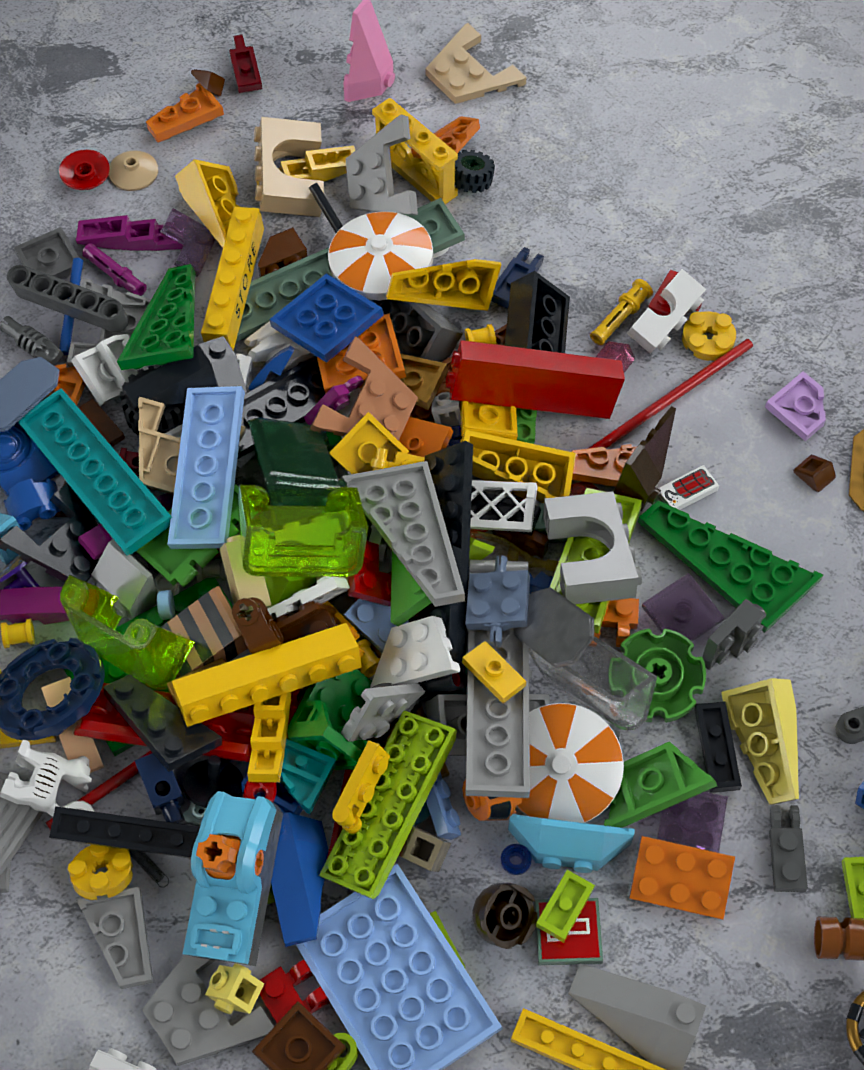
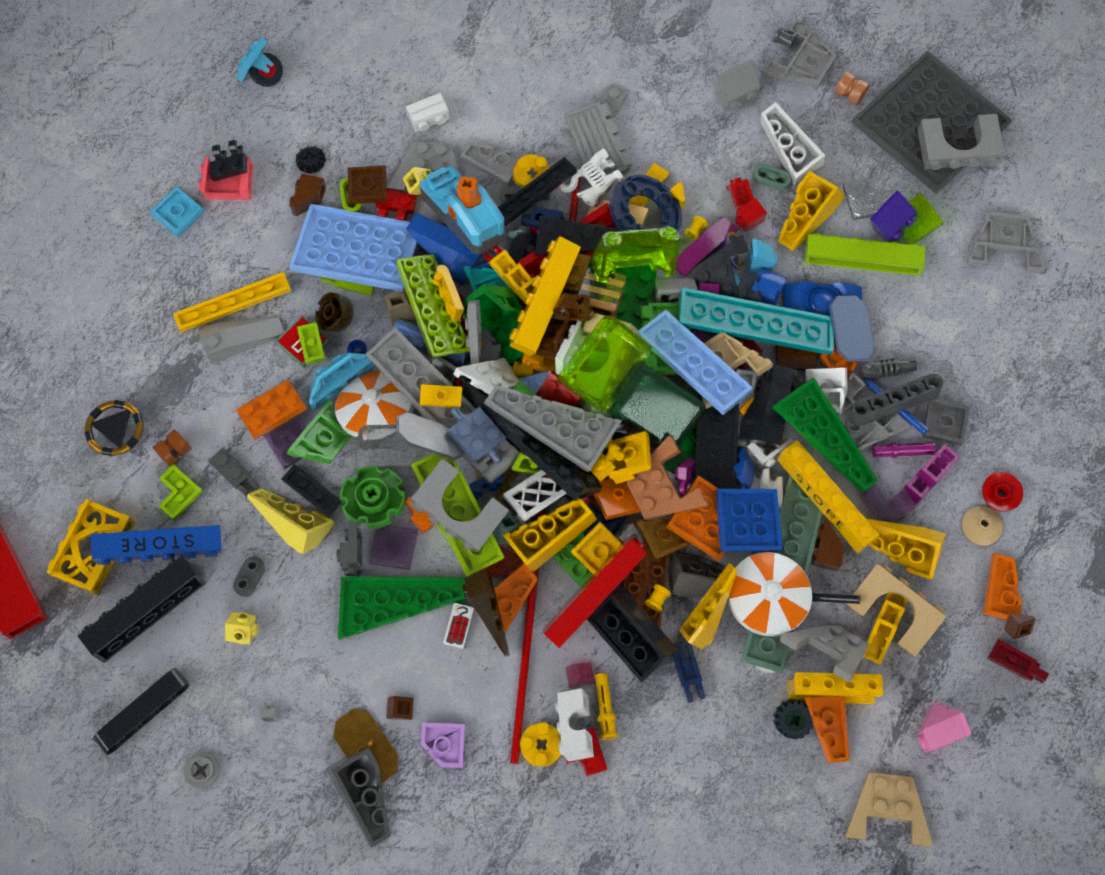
camera: 135 degrees right, 10 degrees up
(166, 604) = (641, 297): tile -> none

